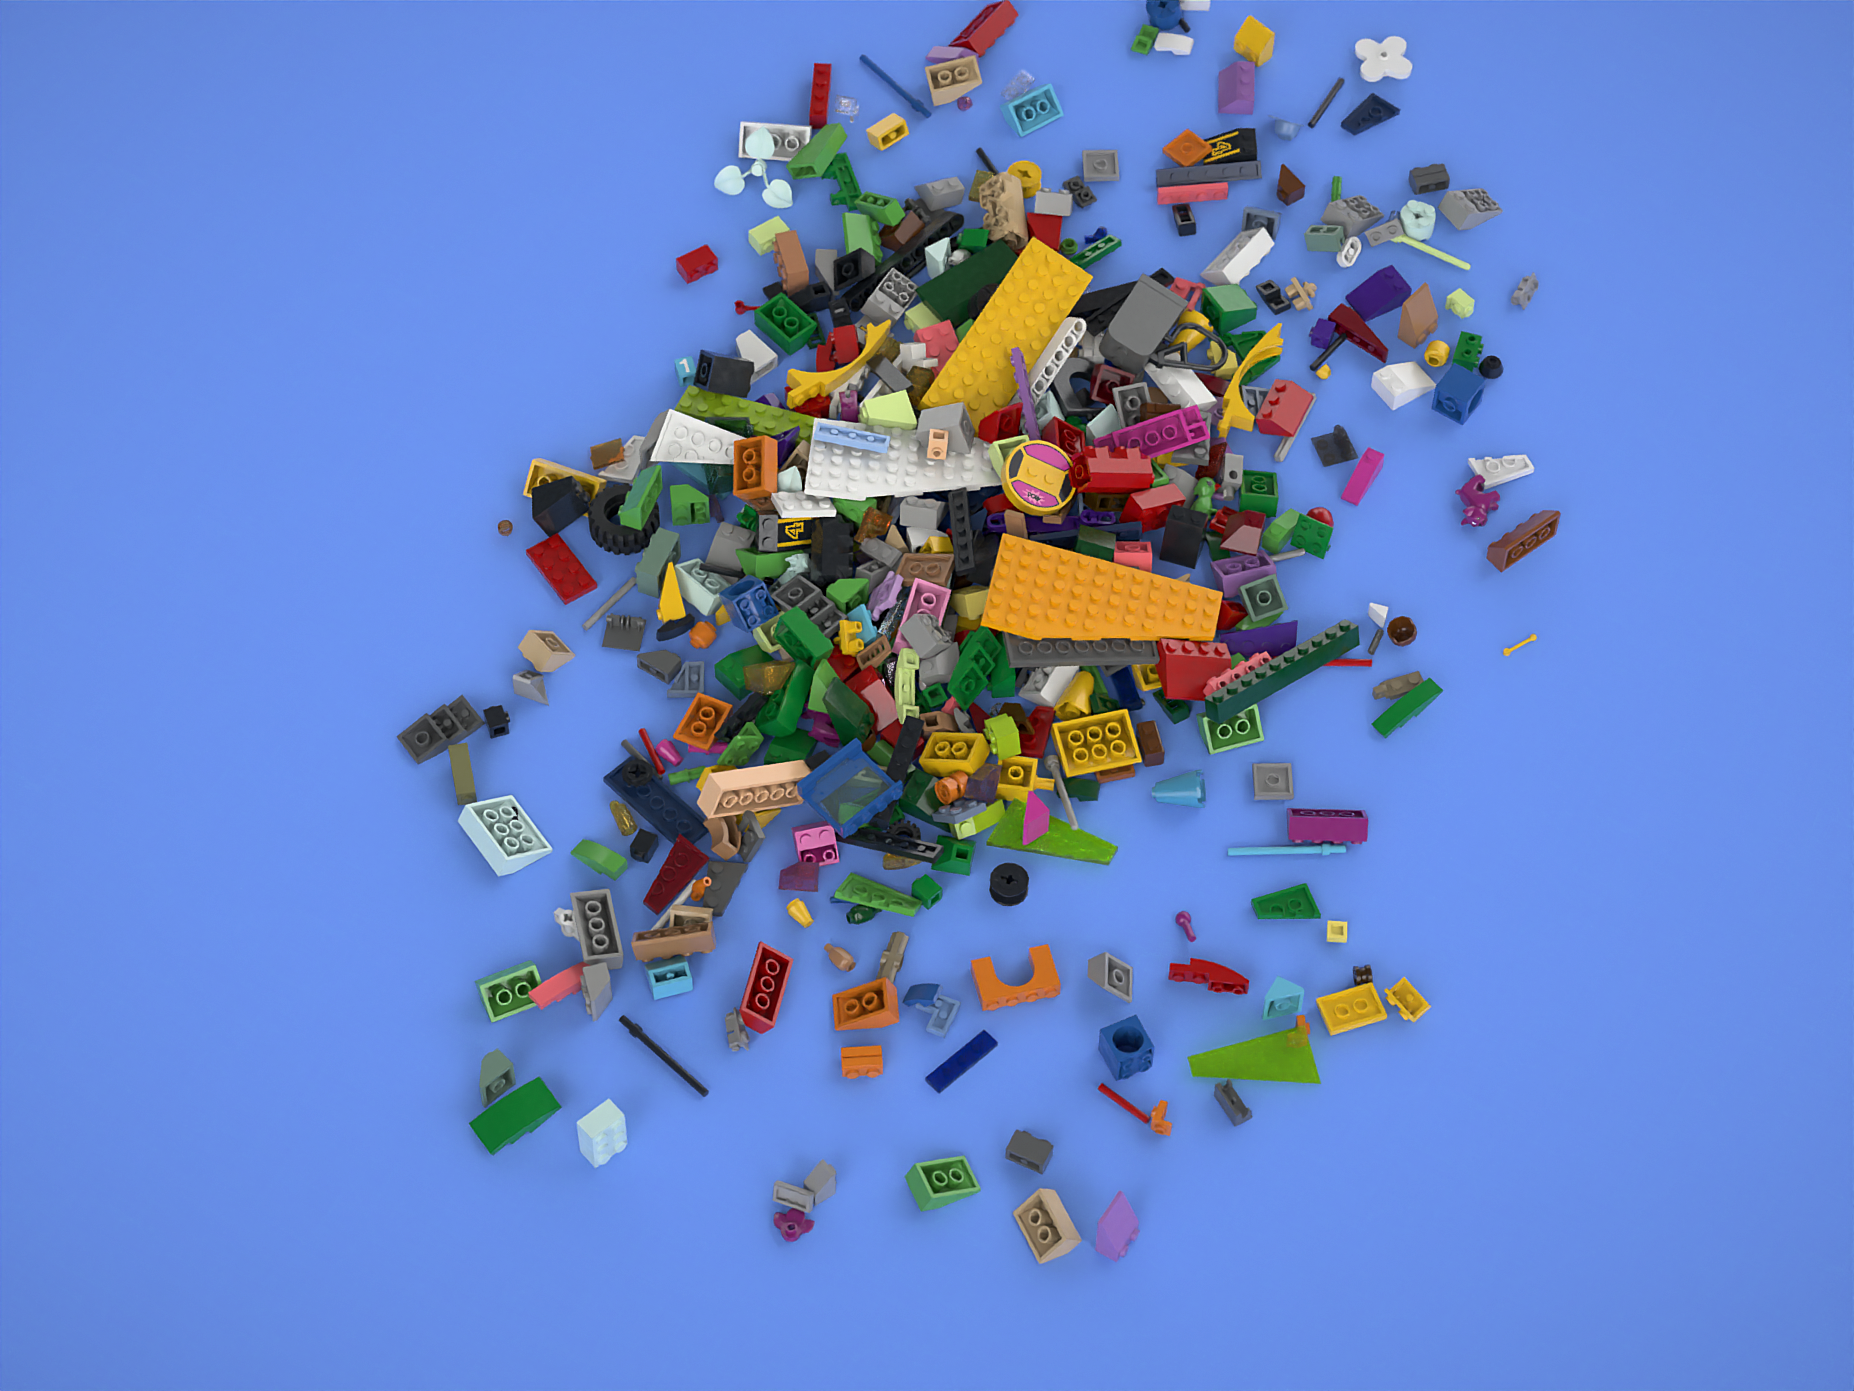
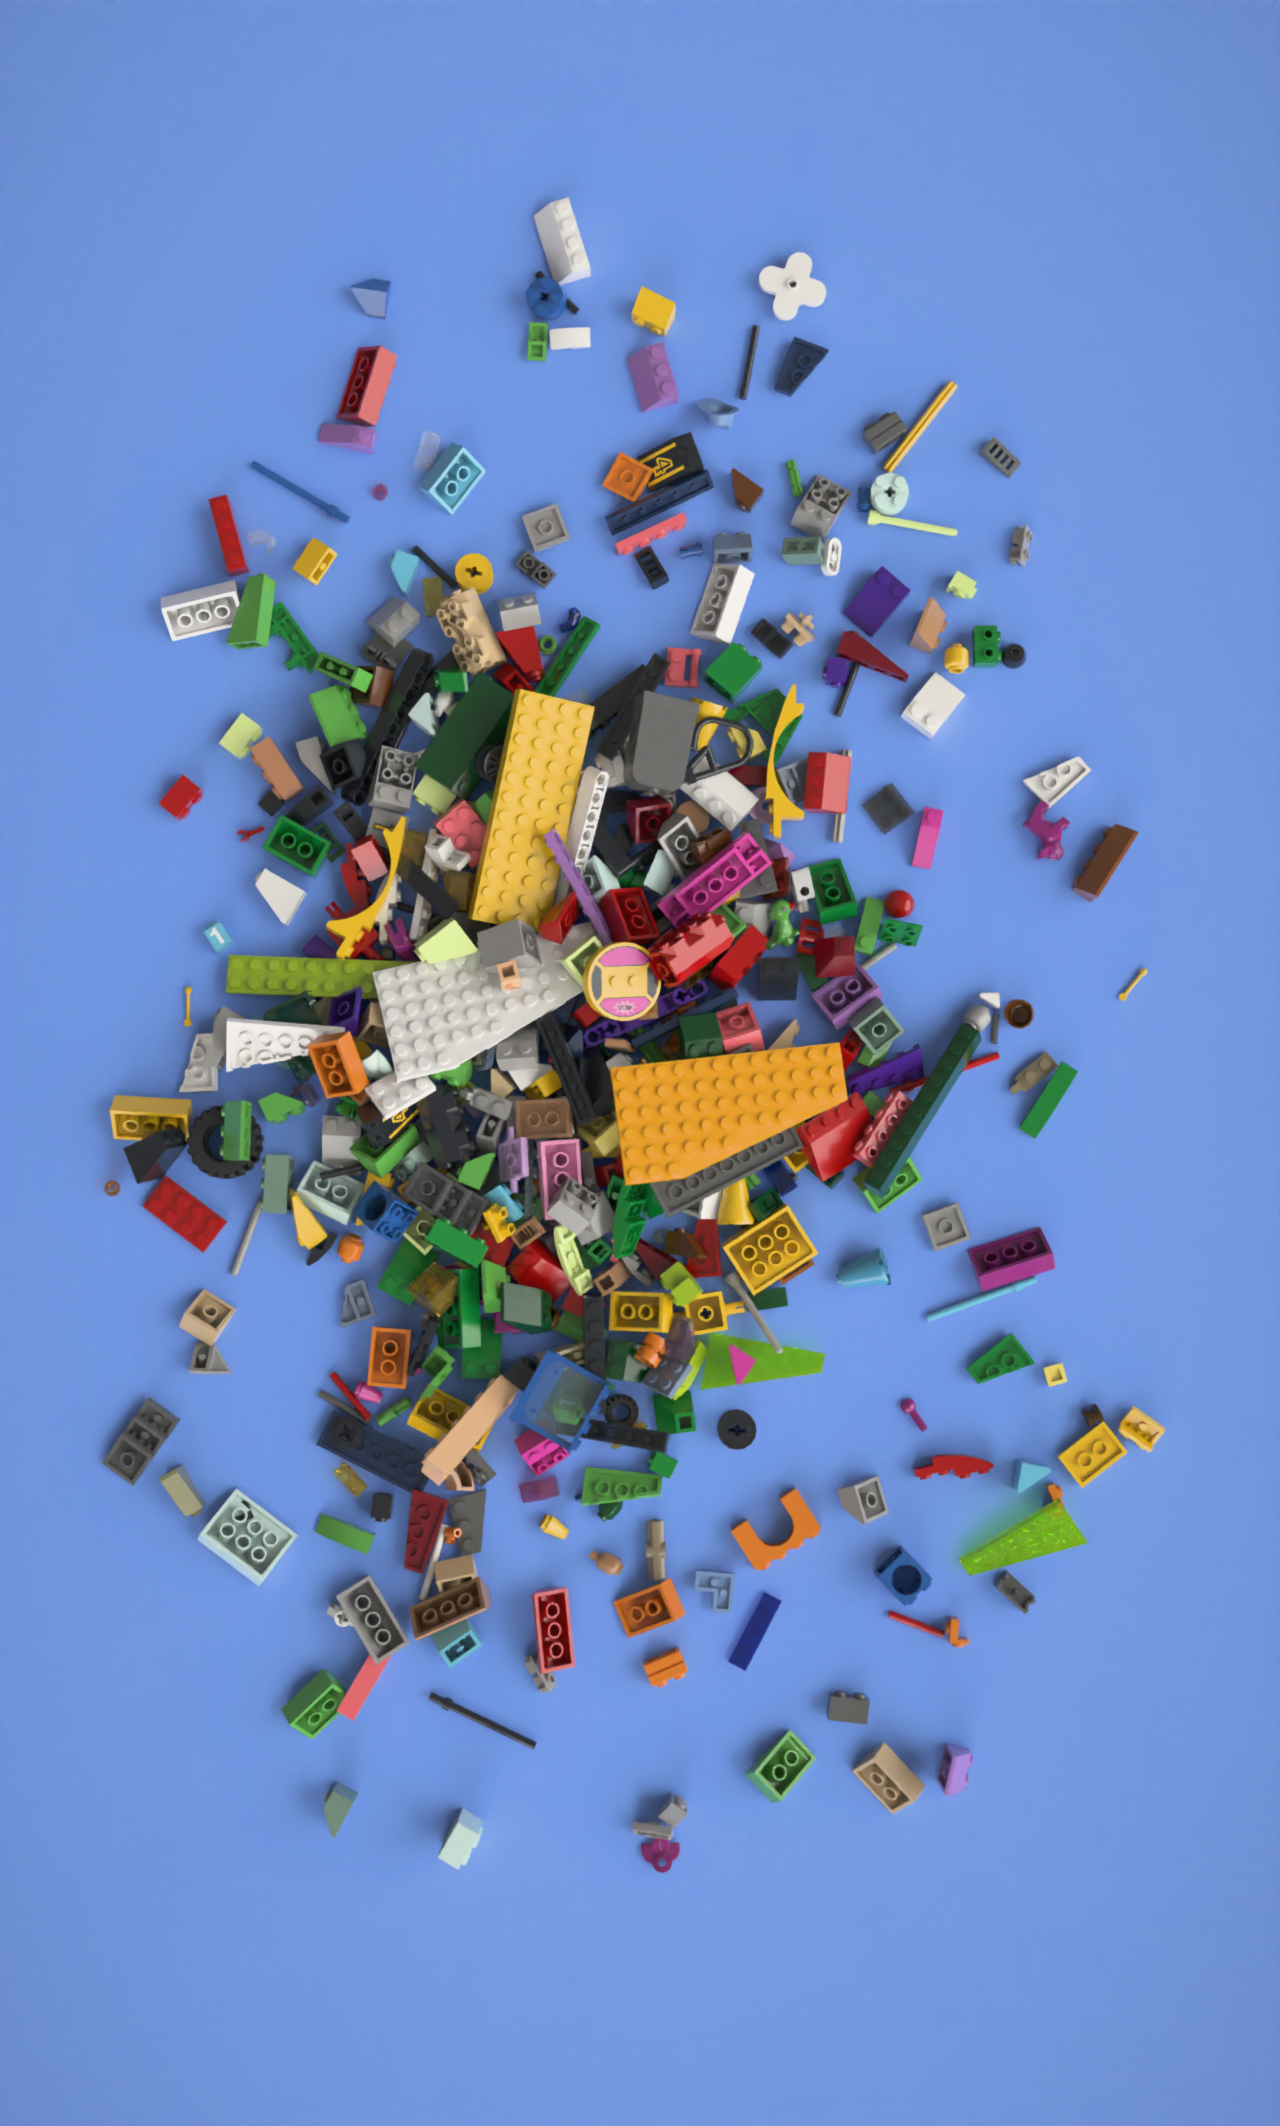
camera: 15 degrees left, 30 degrees up
(496, 721) = (190, 1414): black brick -> none
(515, 1115) = (371, 1833): green slope -> none
(596, 989) = (397, 1682): light grey slope -> none
(607, 454) = (179, 1064): clear orange piece -> none
(624, 632) = (273, 1268): dark grey hinge -> none
(628, 428) = (188, 1022): none -> yellow hinge
(660, 664) = (324, 1296): dark grey slope -> none
(723, 374) = (260, 938): black slope -> none
(731, 181) = (197, 646): light aqua plant -> none
(799, 563) = (418, 1146): light aqua plate -> none
(852, 437) = (421, 995): light blue plate -> none
(873, 524) = (474, 1082): clear orange wing -> none
(922, 993) = (698, 1581): blue slope -> none
(952, 79) = (359, 471): tan slope -> none
(964, 159) = (404, 569): none -> medium azure slope
(1150, 743) = (818, 1226): reddish brown brick -> none
(1223, 215) = (691, 550): none -> blue pin
(1323, 372) = (849, 717): yellow hinge -> none
(1364, 622) = (977, 1017): none -> light grey head
(1384, 232) = (855, 523): light grey hinge -> none
(1458, 394) = (994, 706): blue brick -> none
(1467, 182) = (919, 427): none -> yellow axle
(1468, 208) = (936, 456): light grey slope -> none
(1524, 214) = (1004, 453): none -> dark grey slope

